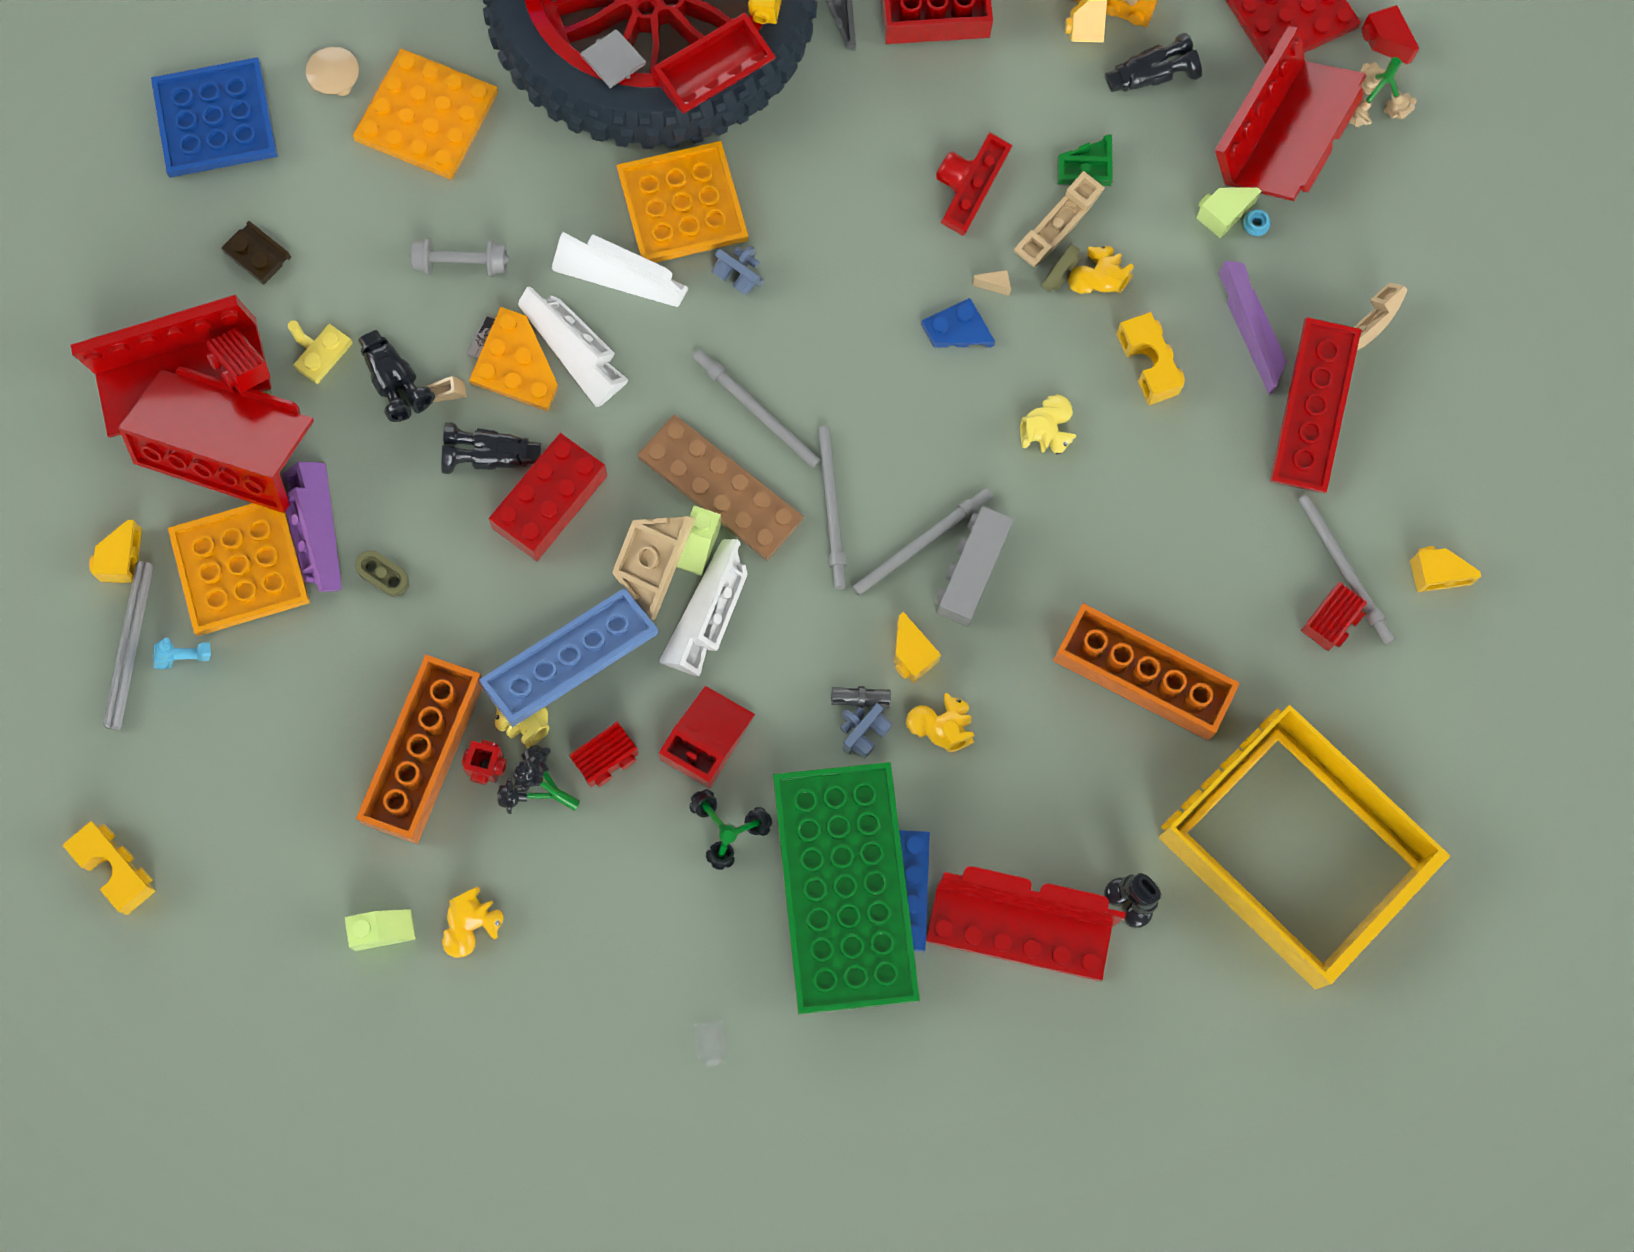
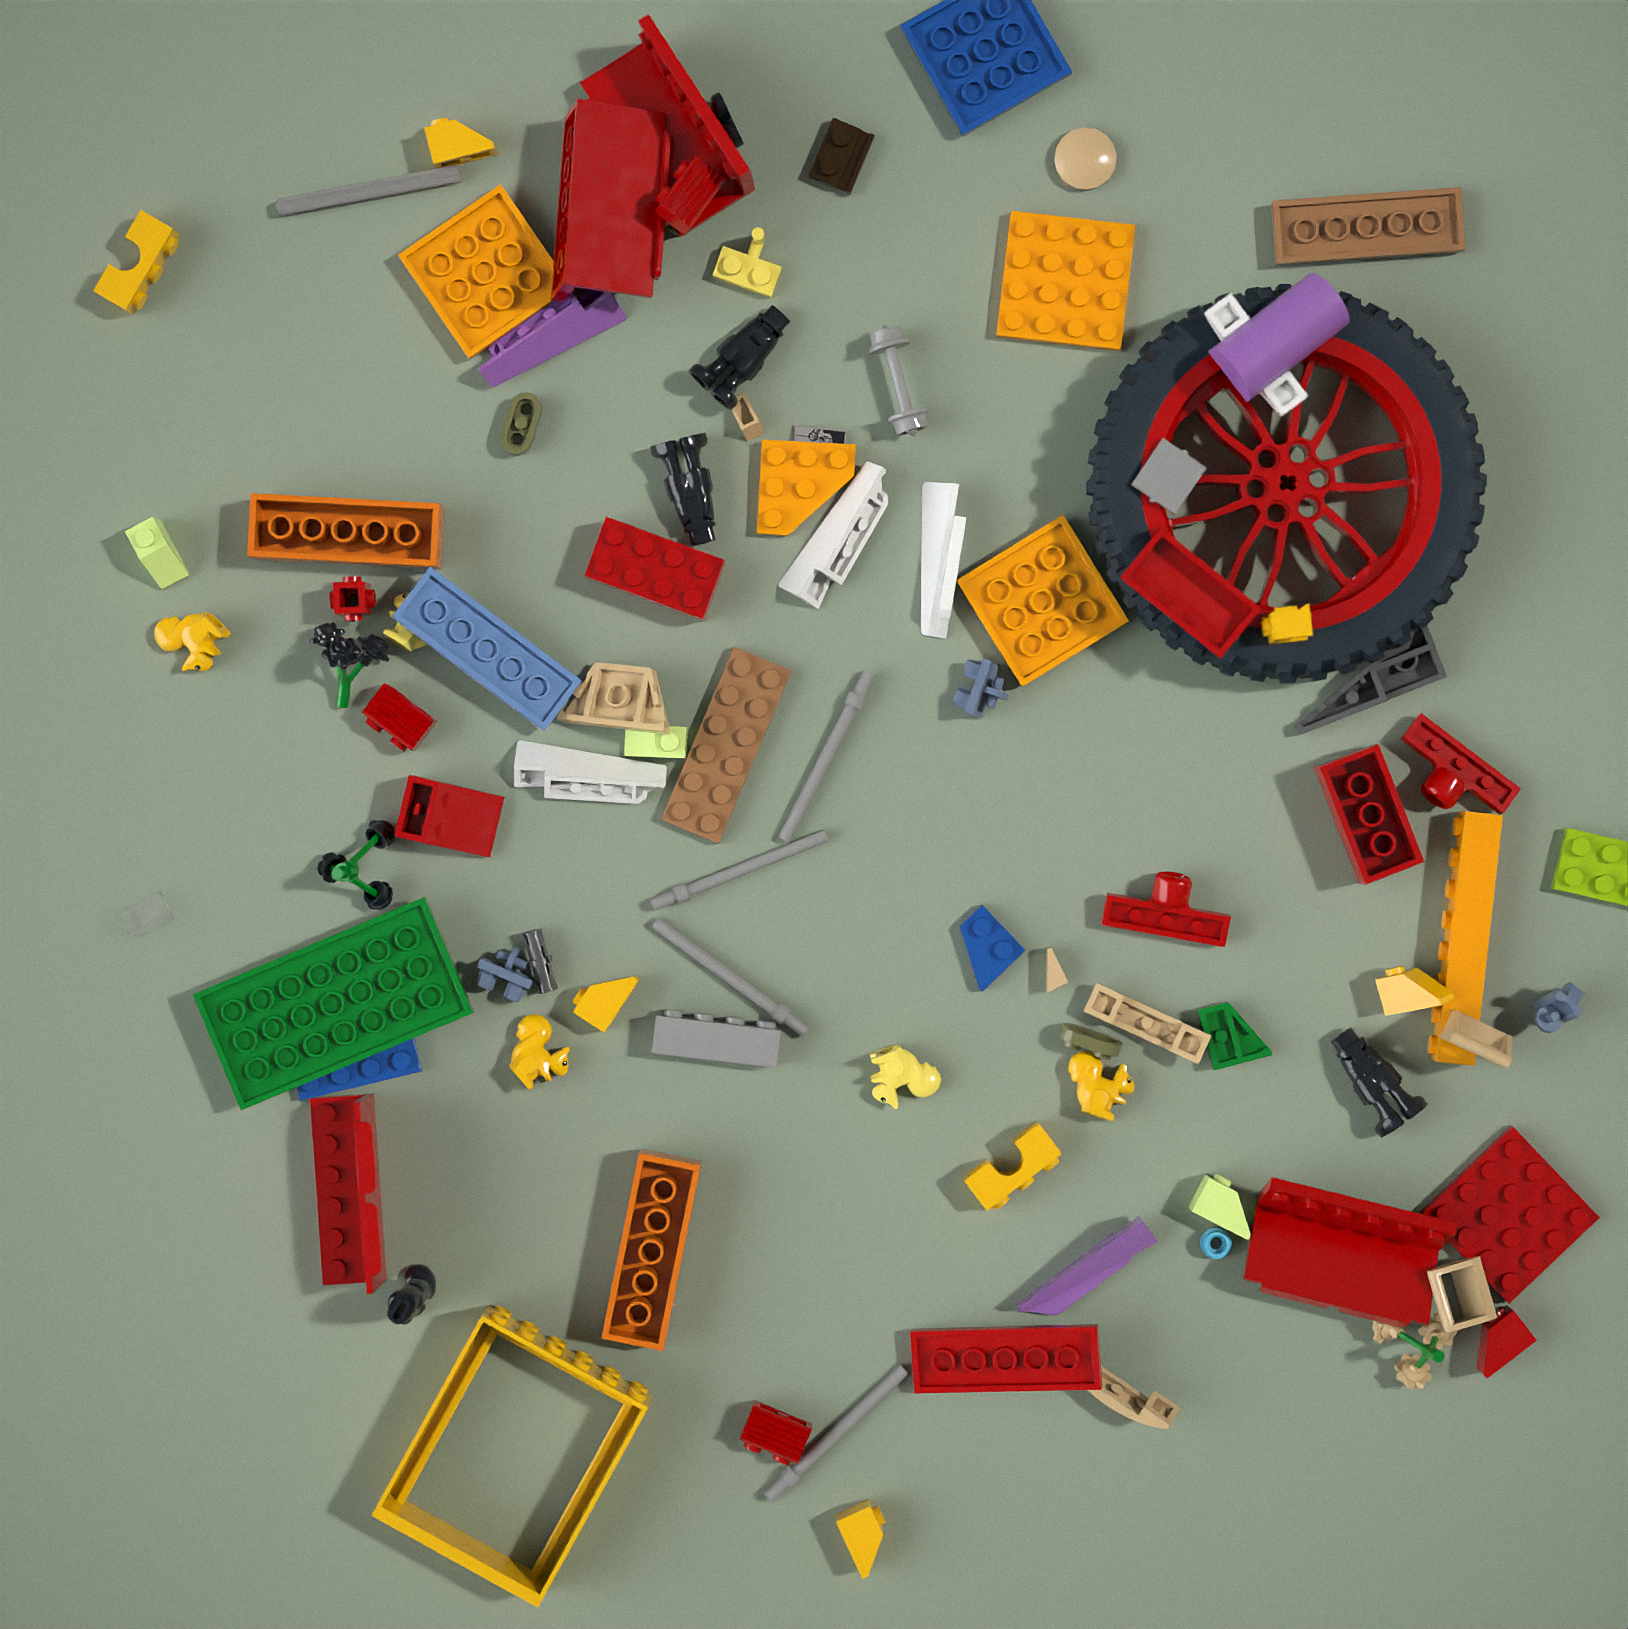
camera: 80 degrees right, 15 degrees up
(165, 653) = (365, 236): medium azure piece -> none
(1345, 48) = (1471, 1291): none -> tan tile

